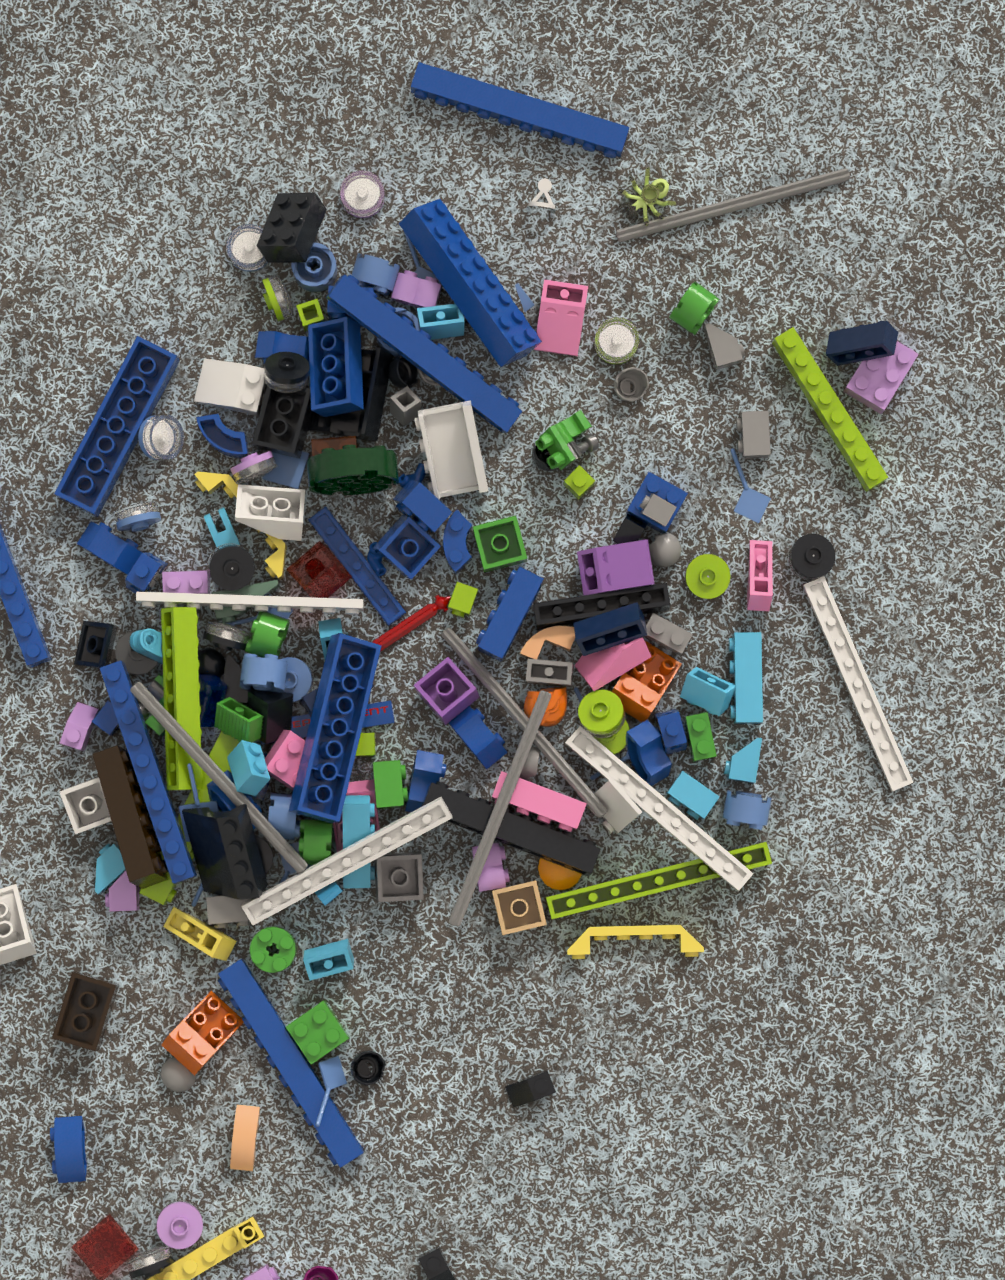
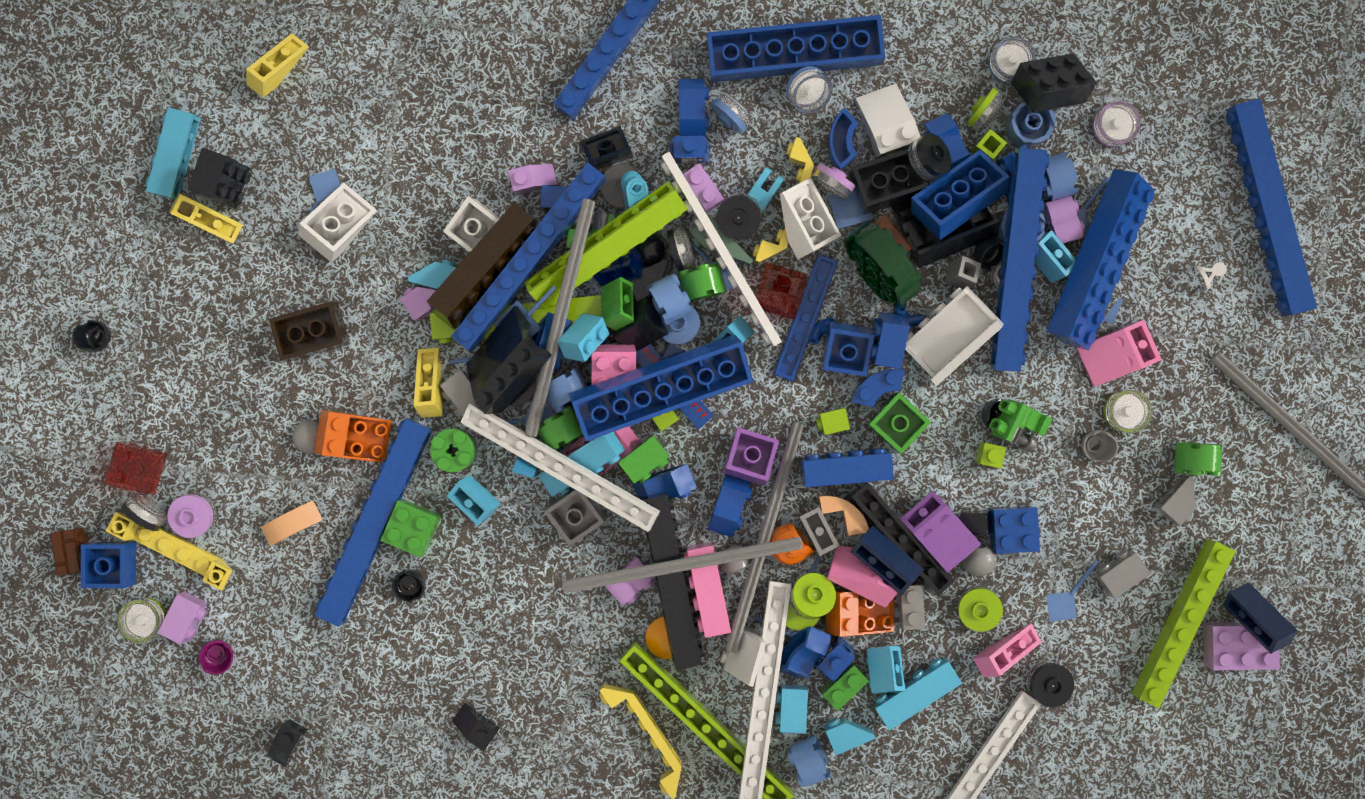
camera: 55 degrees right, 5 degrees up
(69, 1148) = (194, 389): blue brick -> none
(333, 1077) = (383, 562): medium blue piece -> none
(412, 622) = (788, 392): red wheel -> none
(519, 907) = (612, 627): tan brick -> none
(649, 196) = (1268, 362): animal -> none
(657, 509) = (1012, 536): light grey brick -> none

